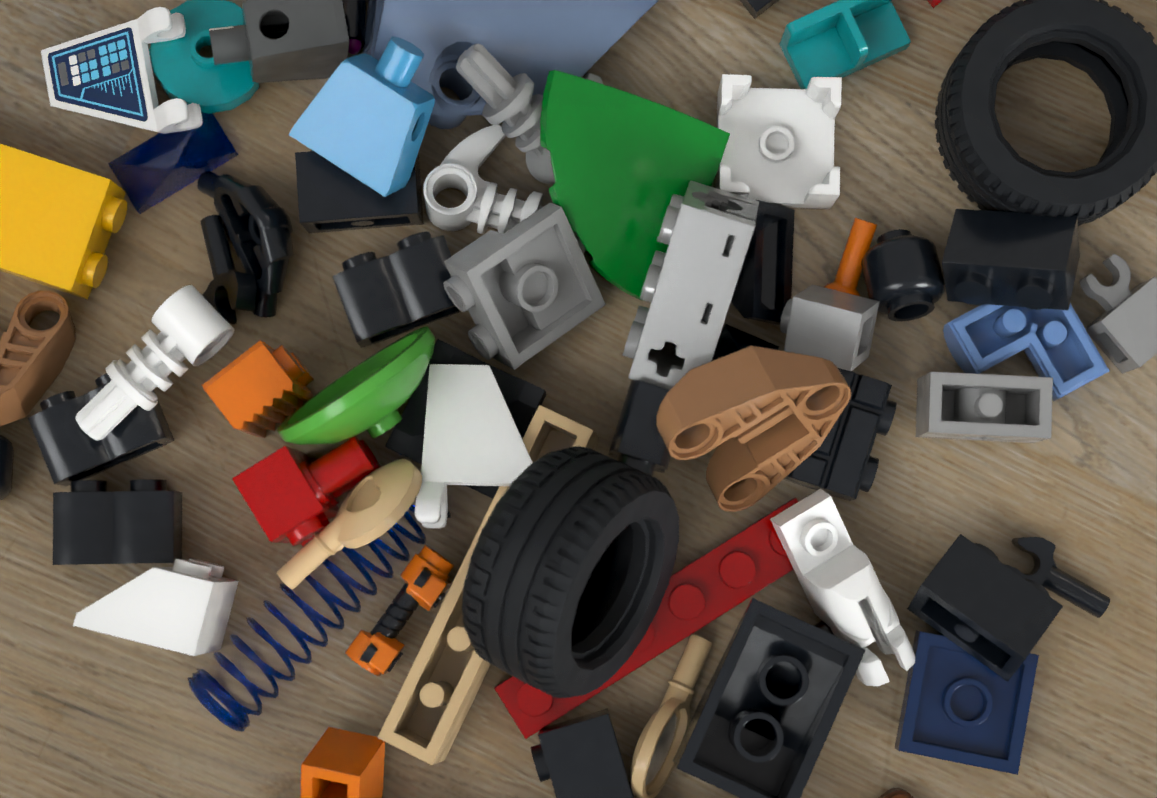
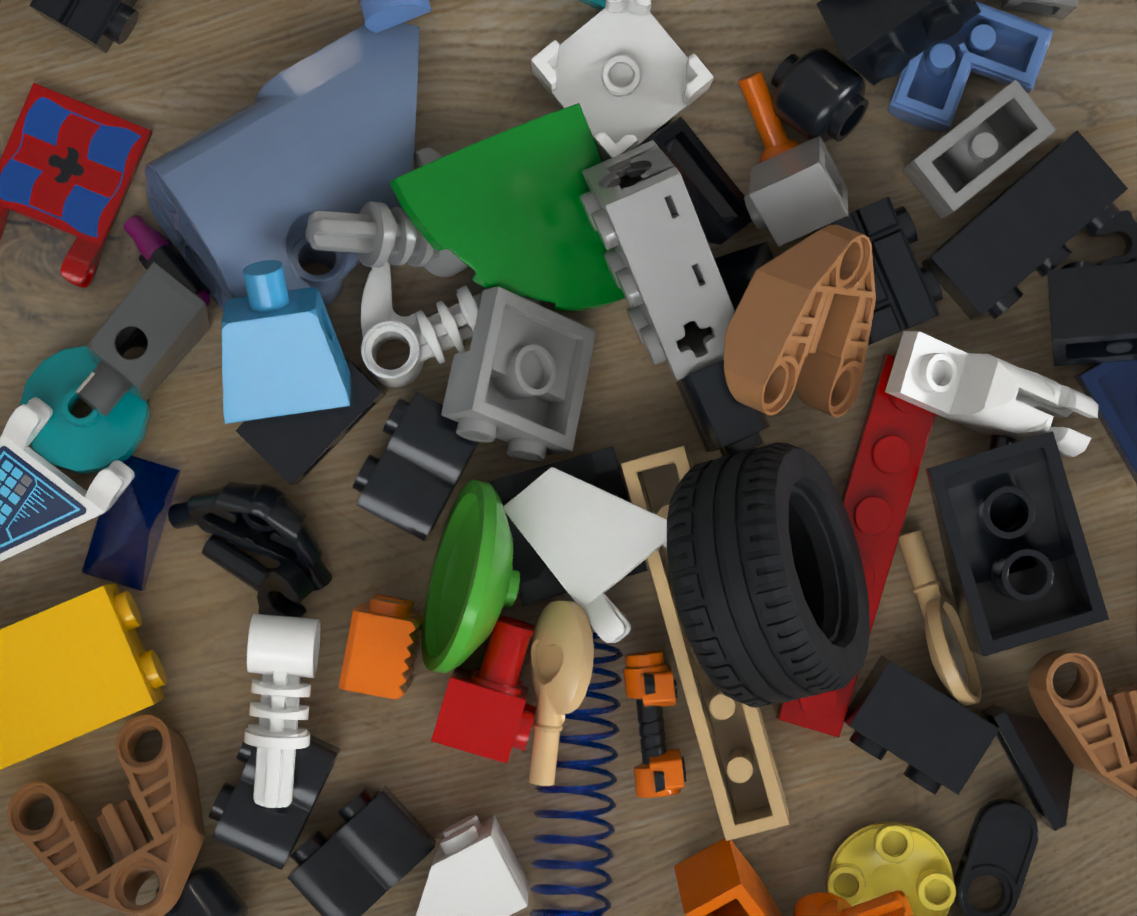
camera: 45 degrees left, 5 degrees up
(971, 493) = (1027, 228): none -> black brick

